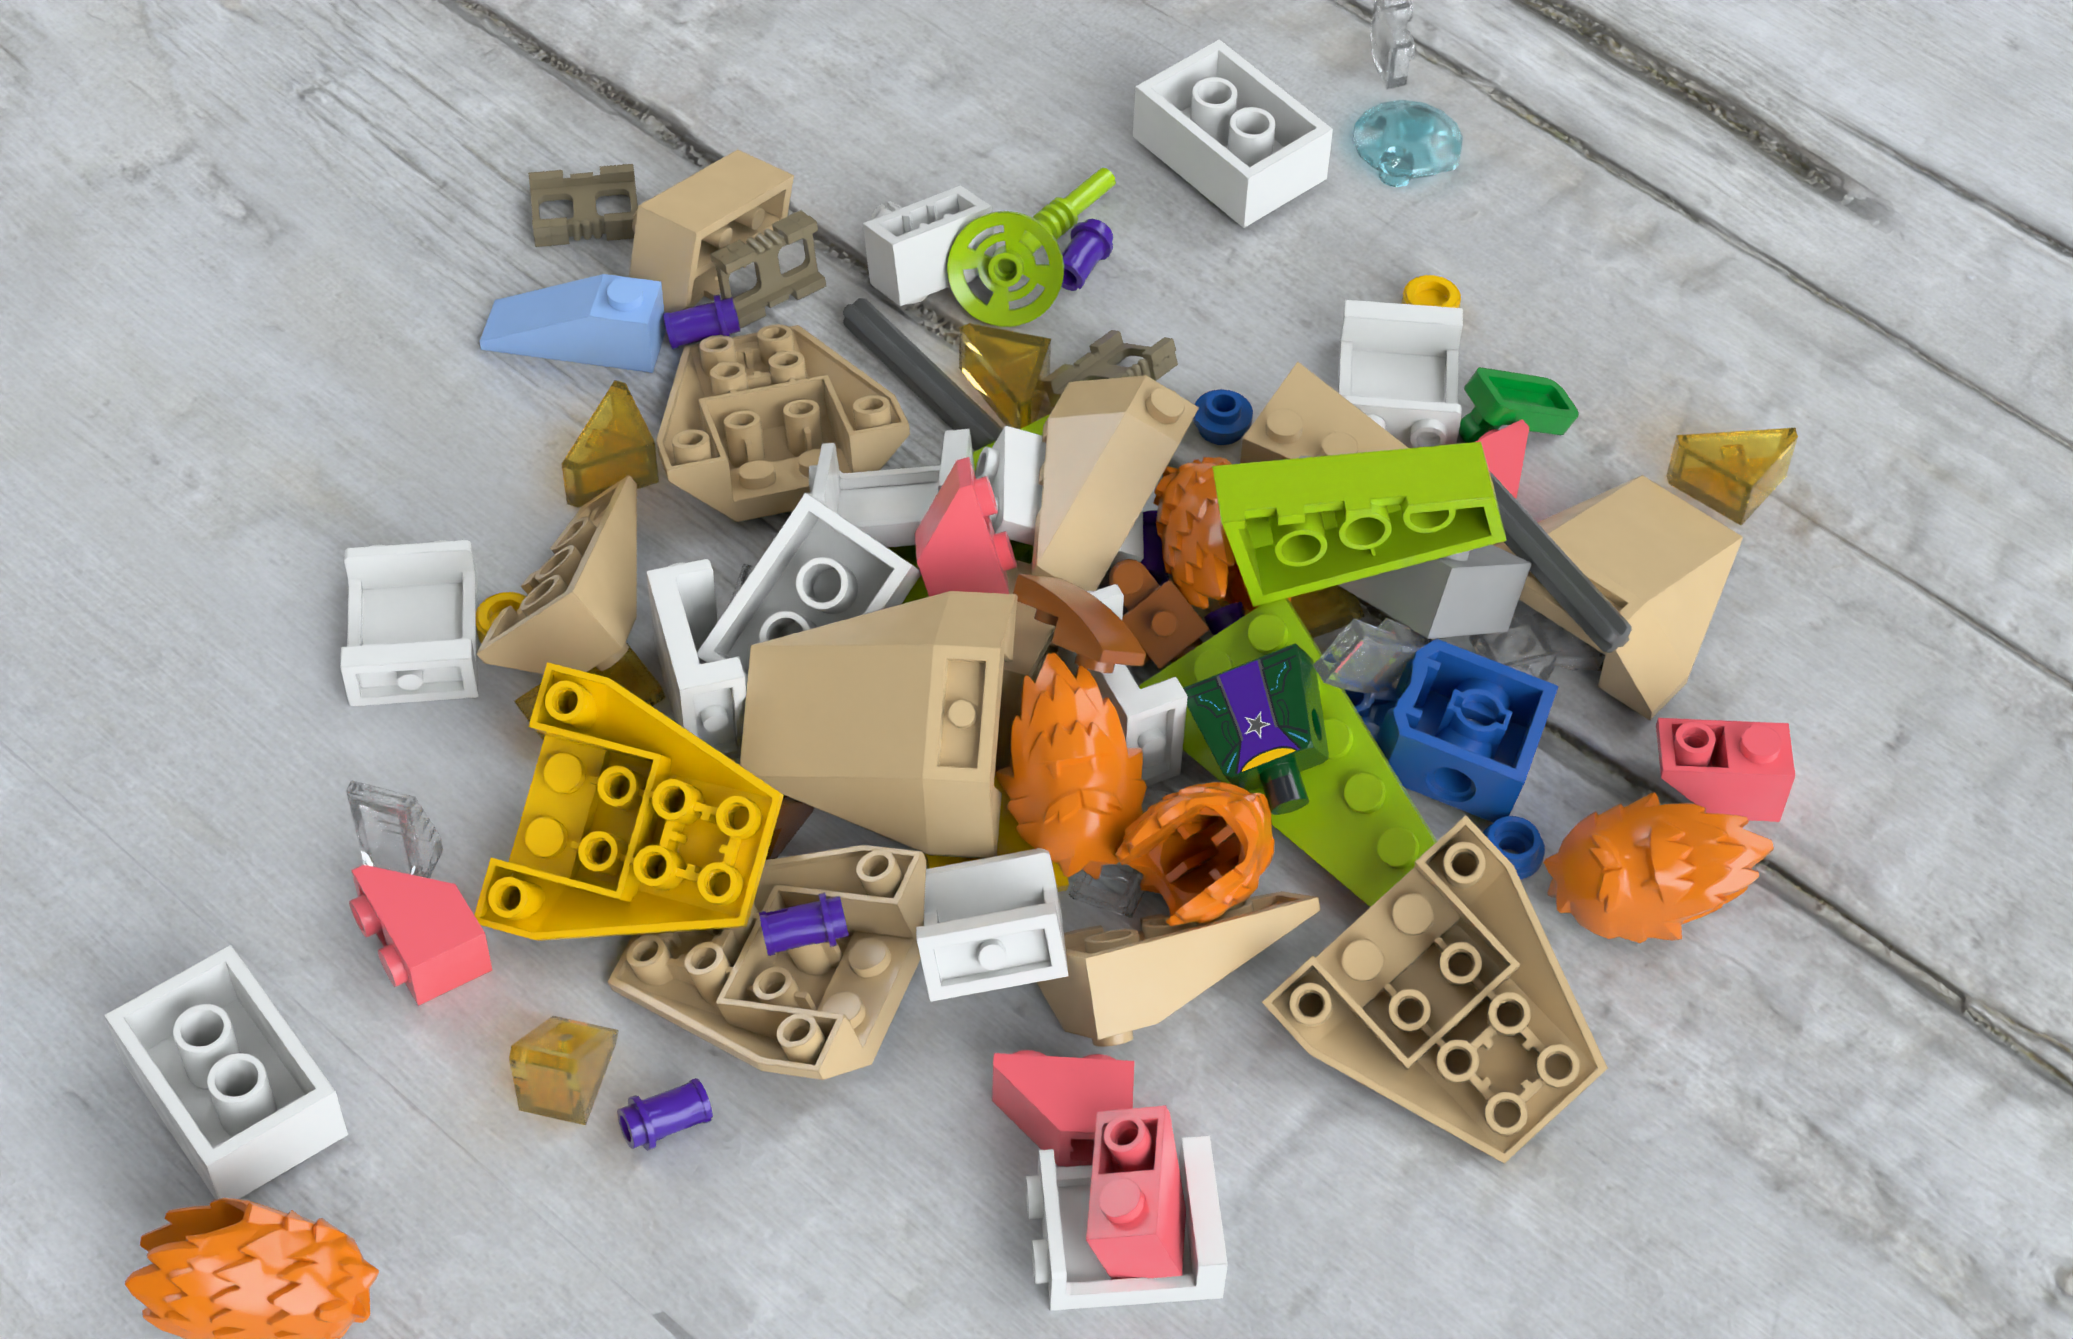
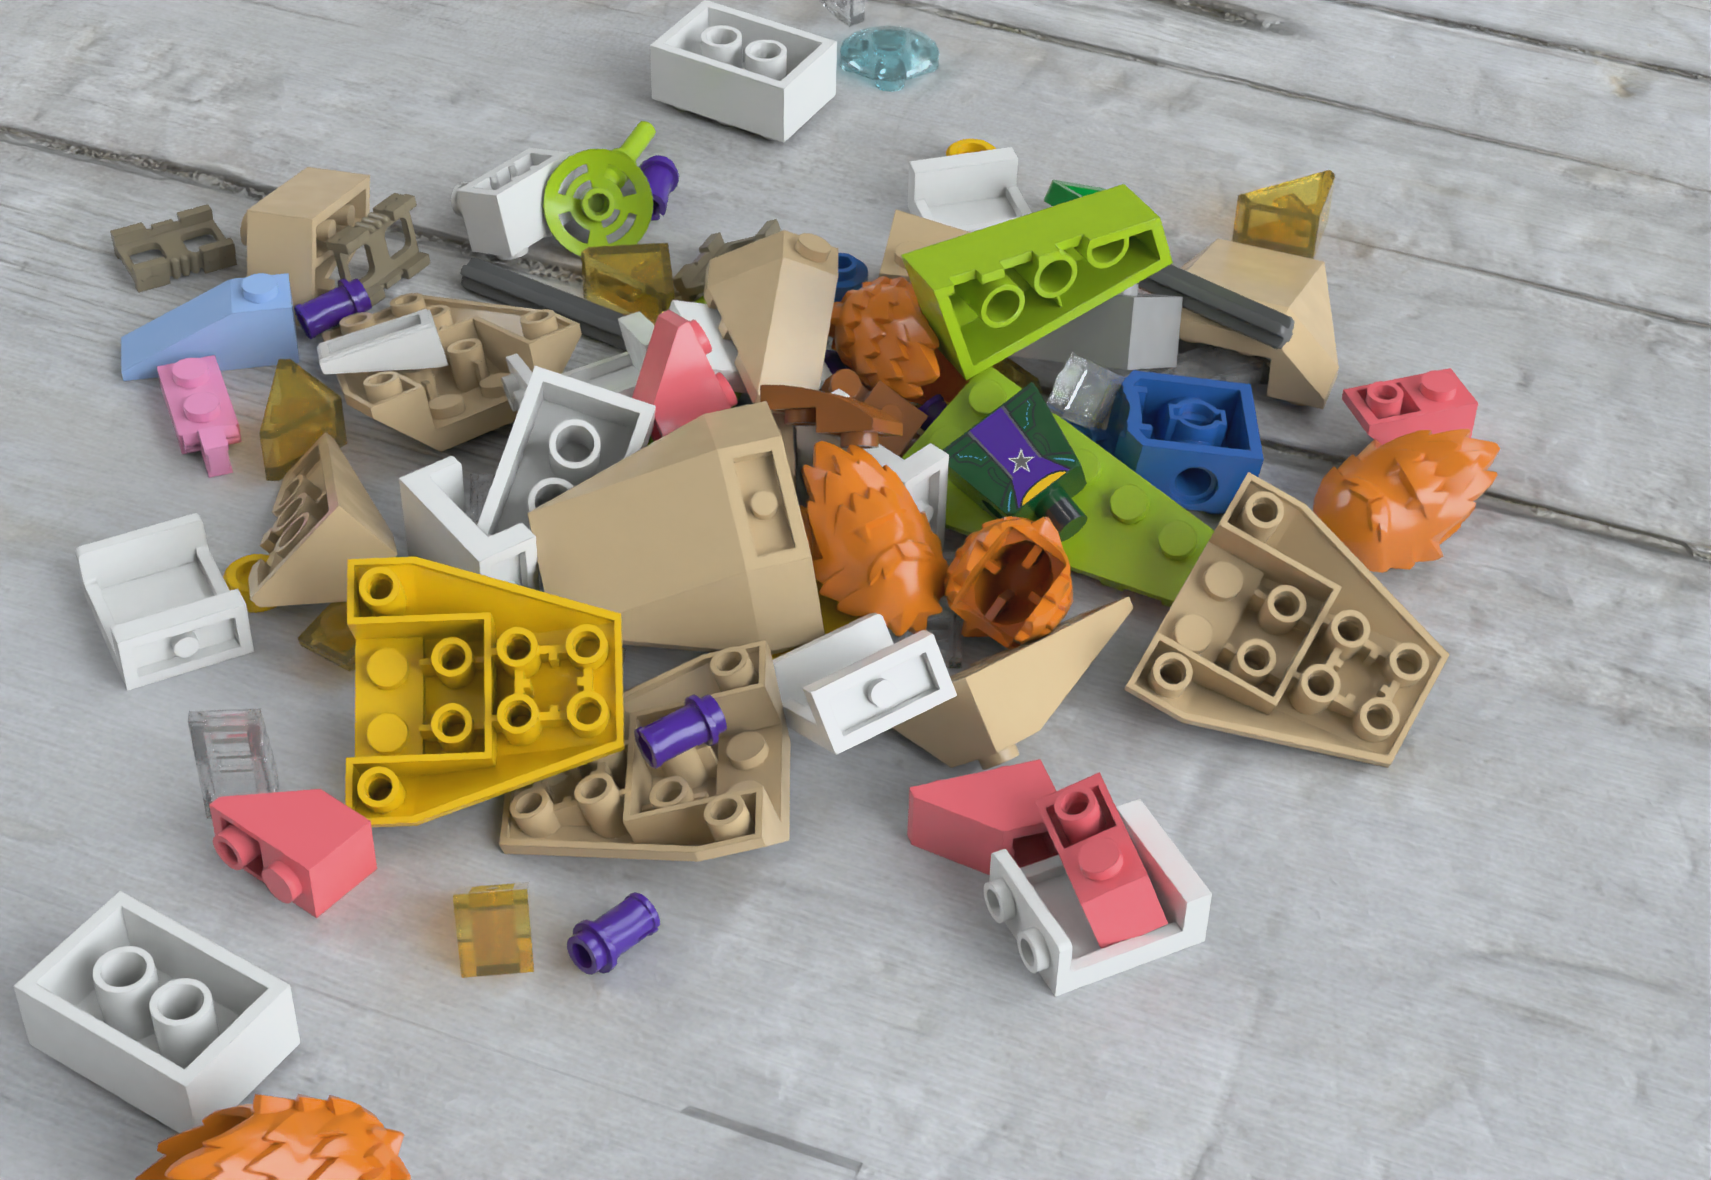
camera: 20 degrees left, 10 degrees down
(534, 409) = (201, 410): none -> bright pink hinge
(717, 398) = (388, 346): none -> white slope

